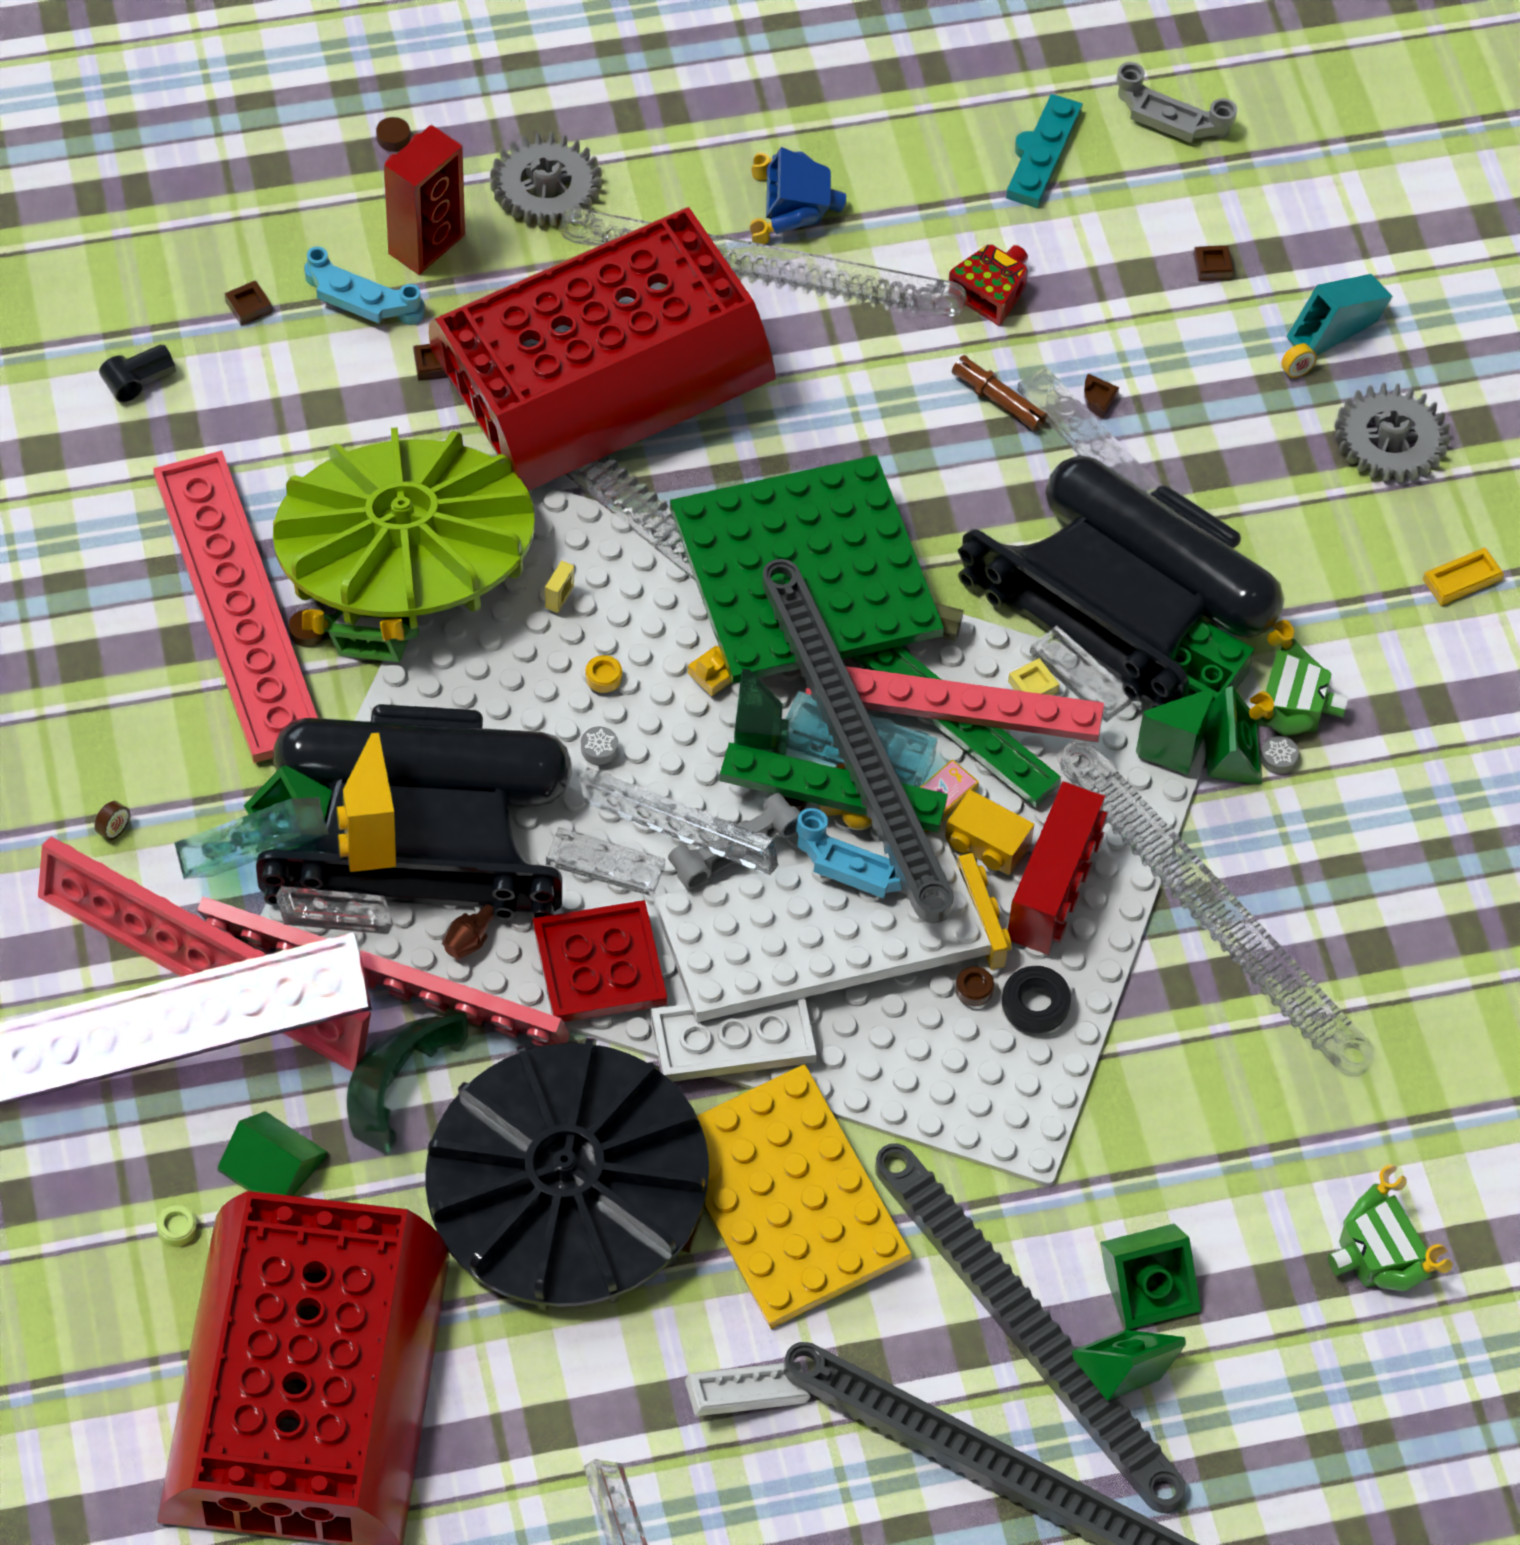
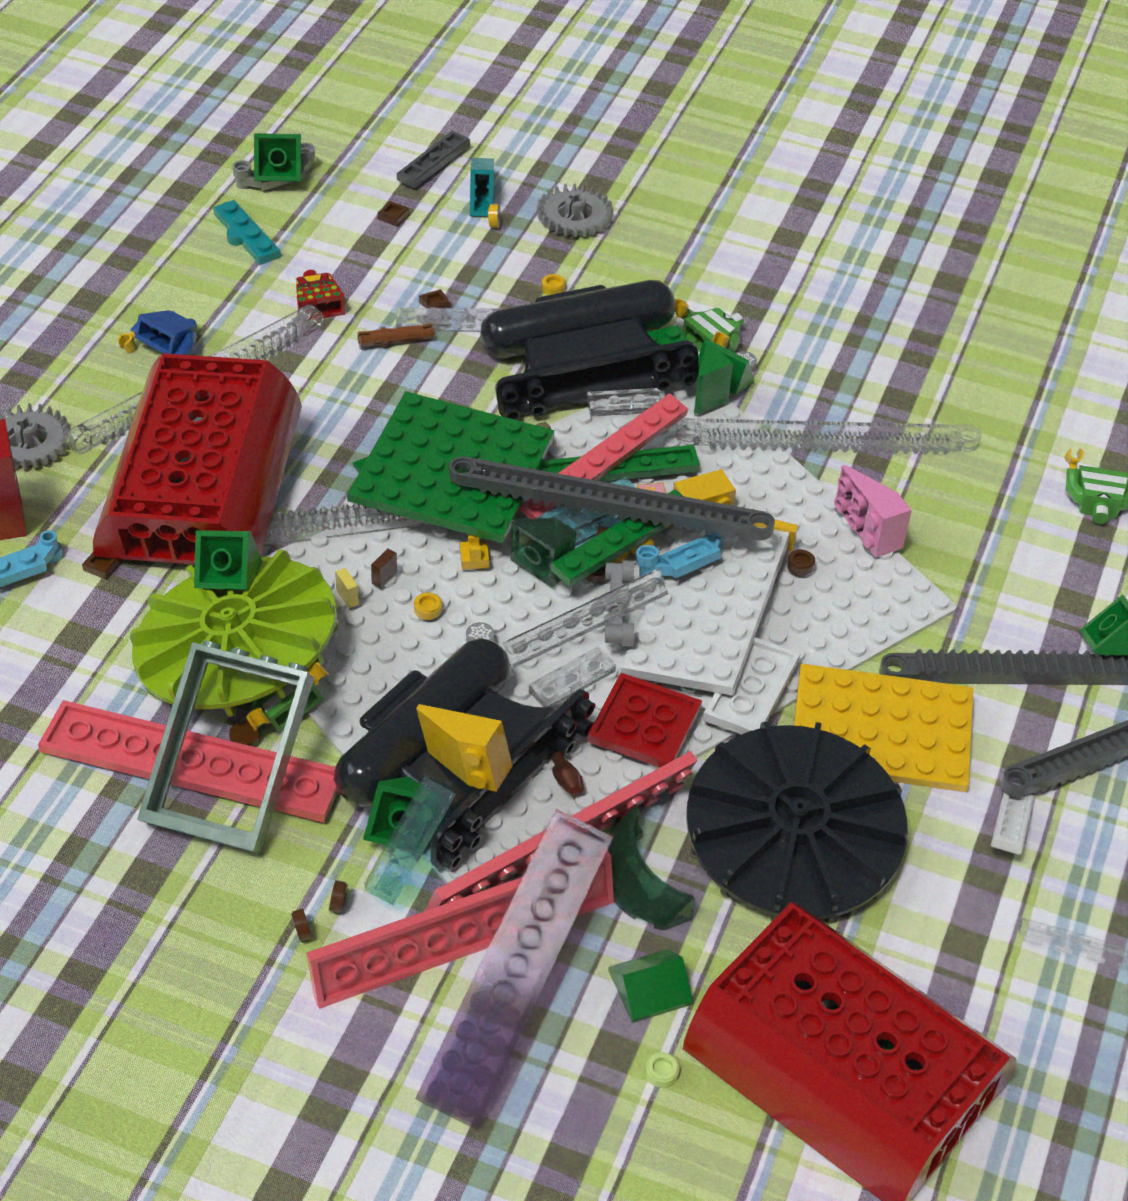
camera: 55 degrees left, 10 degrees down
(148, 610) = (176, 729): none -> sand green window
(167, 829) = (338, 896): none -> reddish brown tile
(334, 910) = (498, 830): clear plate -> none
(461, 457) = (225, 560): none -> green slope
(615, 601) = (384, 568): none -> reddish brown tile
(1034, 678) = (610, 423): light yellow tile -> none
(1044, 979) = (830, 552): black tyre -> none
(1057, 868) = (760, 473): red brick -> none
(1092, 1020) = (872, 511): none -> bright pink slope
(1151, 1275) = (1055, 594): green slope -> none
(1171, 97) = (277, 157): none -> green slope
(1238, 490) = (553, 284): none -> yellow tile
(1347, 239) = (433, 159): none -> dark grey plate
(1463, 576) = (689, 237): yellow tile -> none

